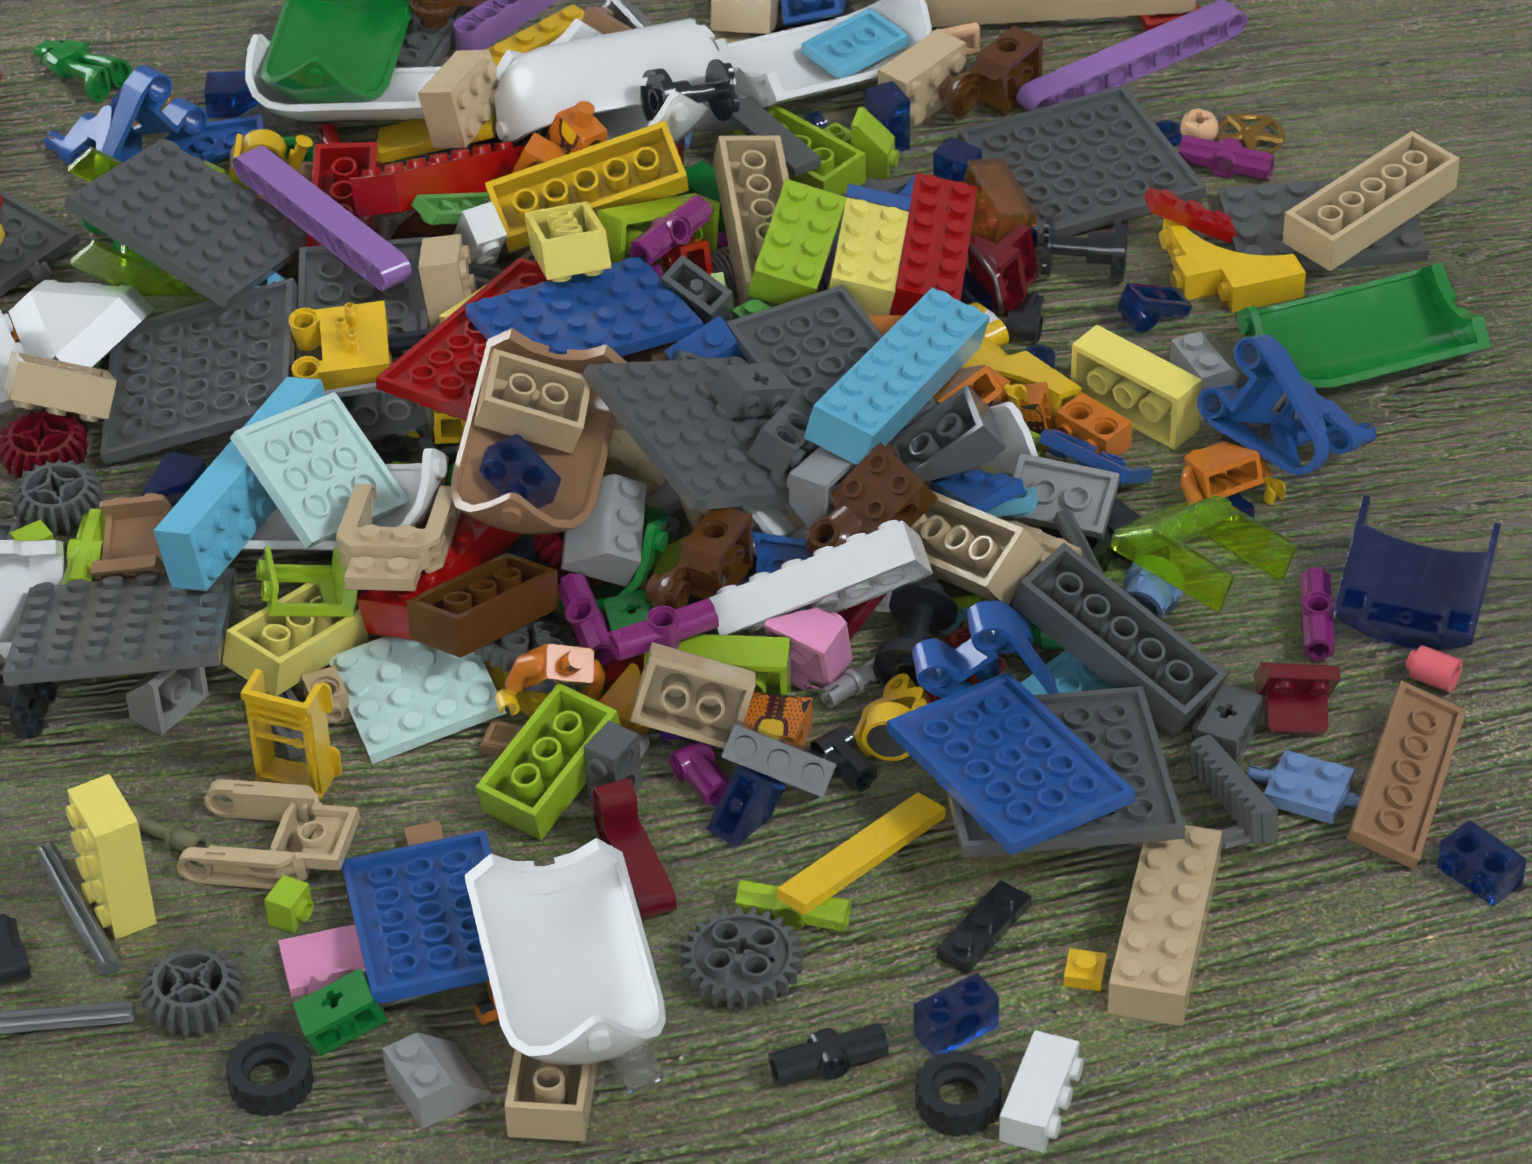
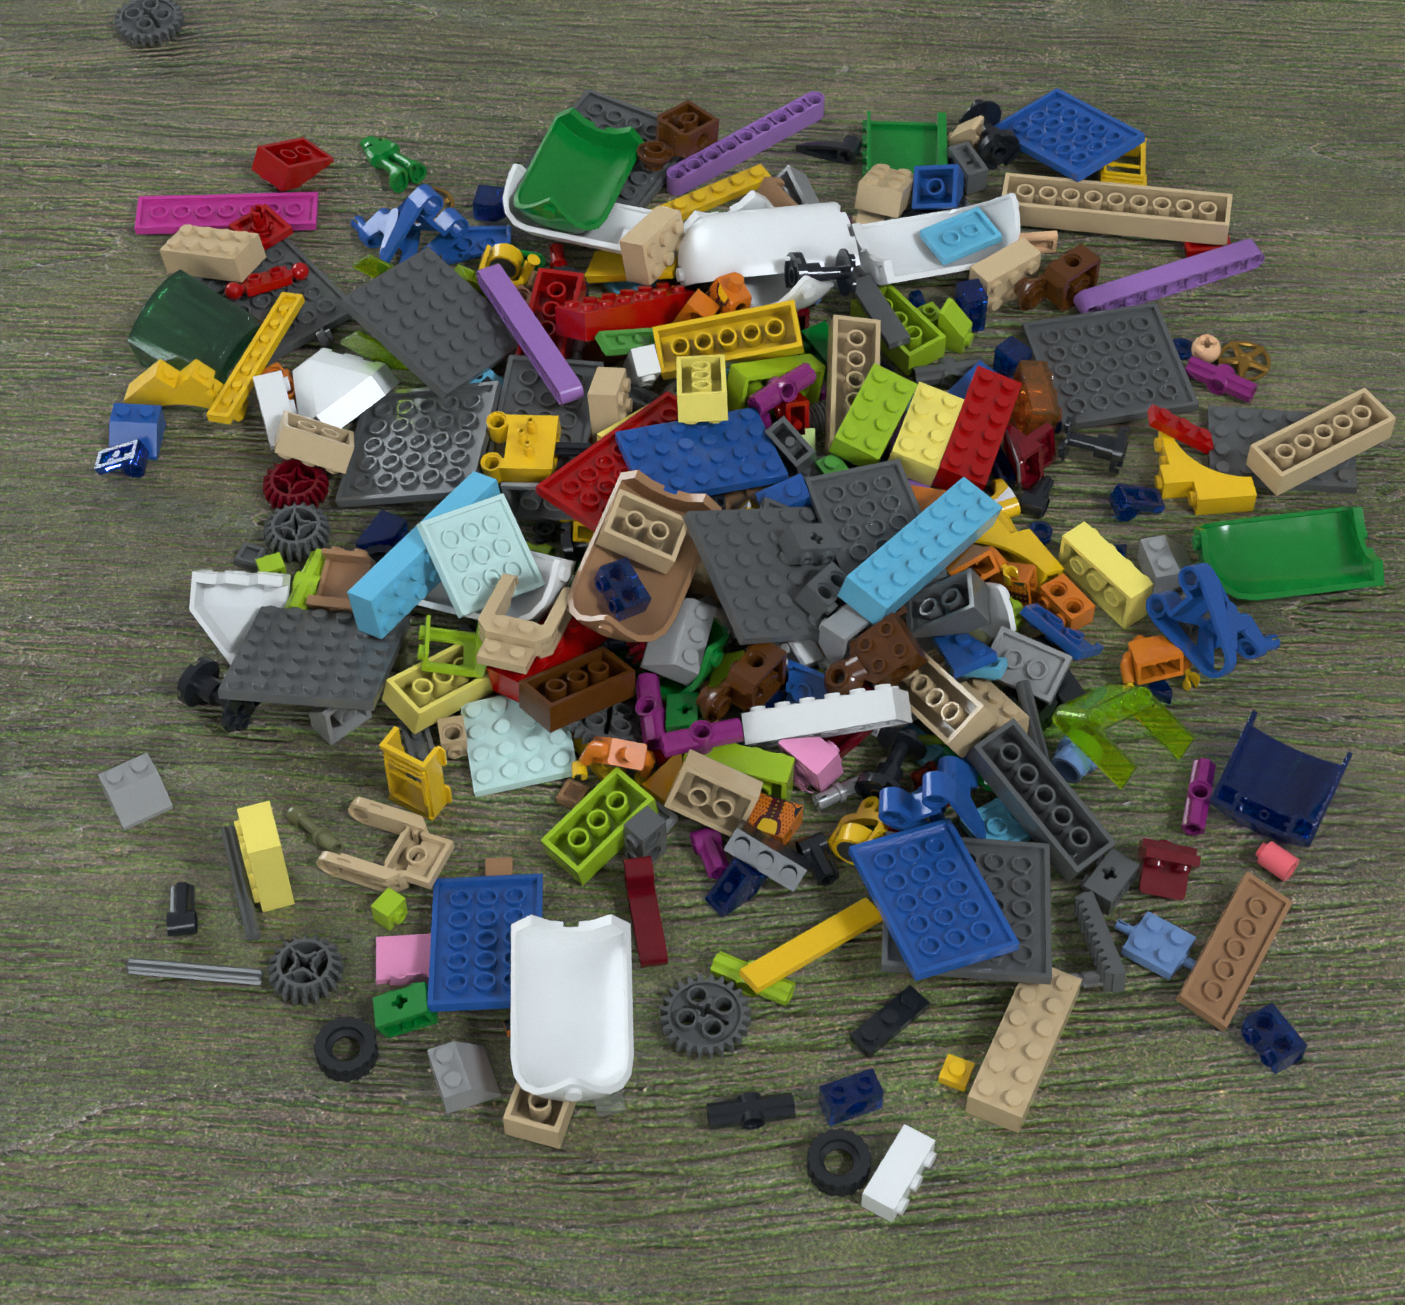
camera: 10 degrees right, 10 degrees up
(877, 197) = (943, 380): blue wing -> none

